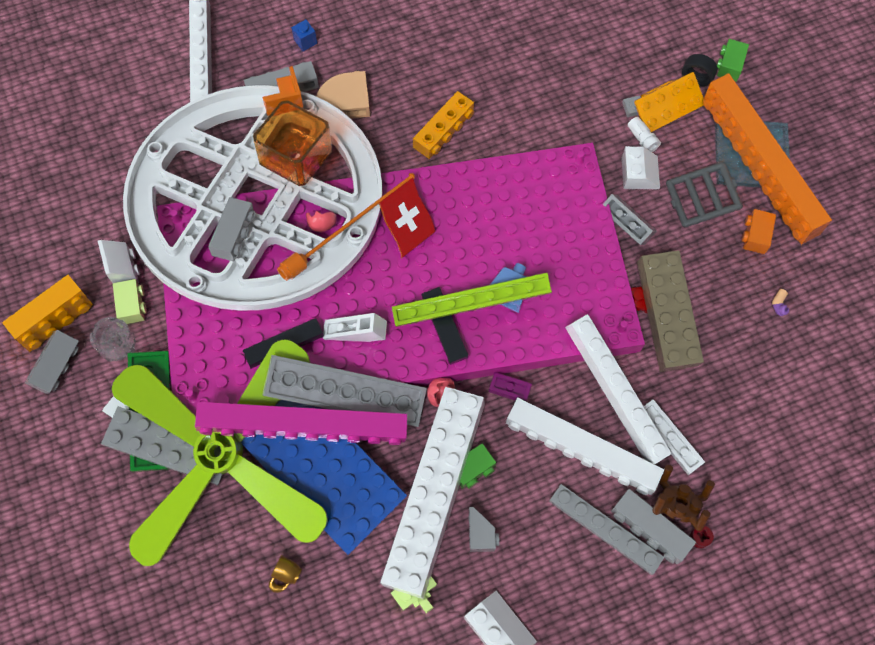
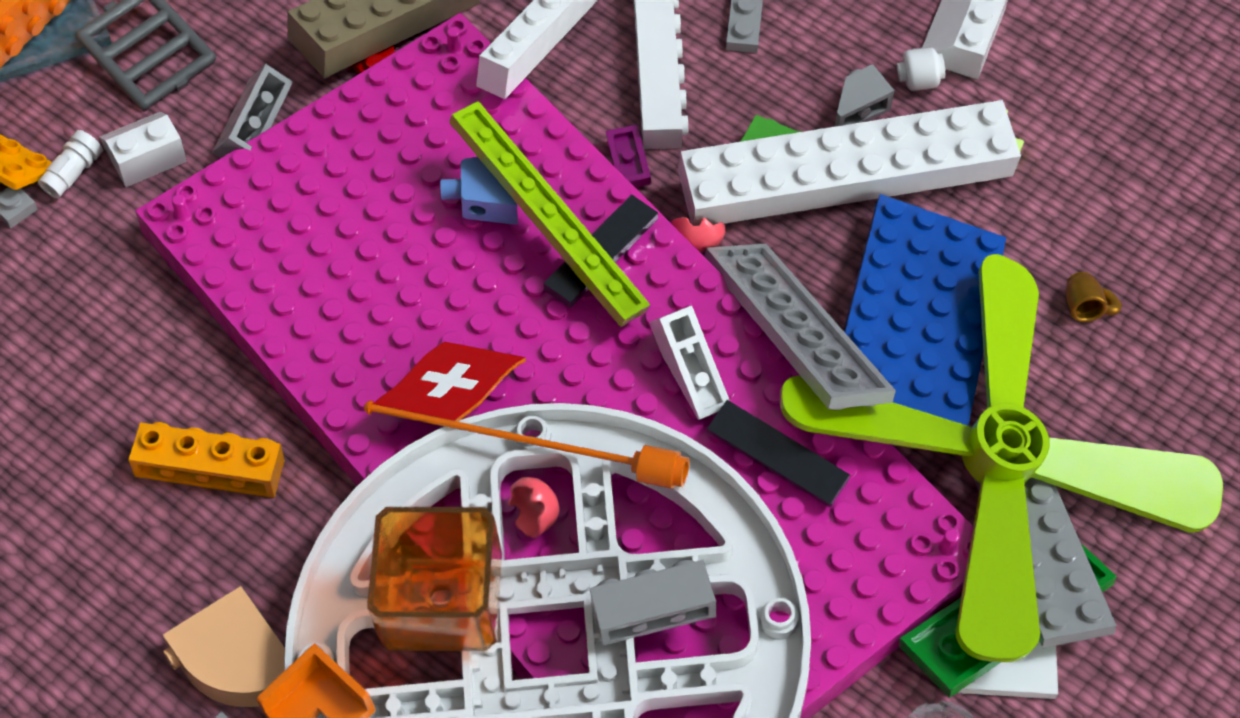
camera: 120 degrees left, 10 degrees down
(300, 422) = (894, 346): dark pink brick -> none
(481, 580) = (921, 68): none -> white head

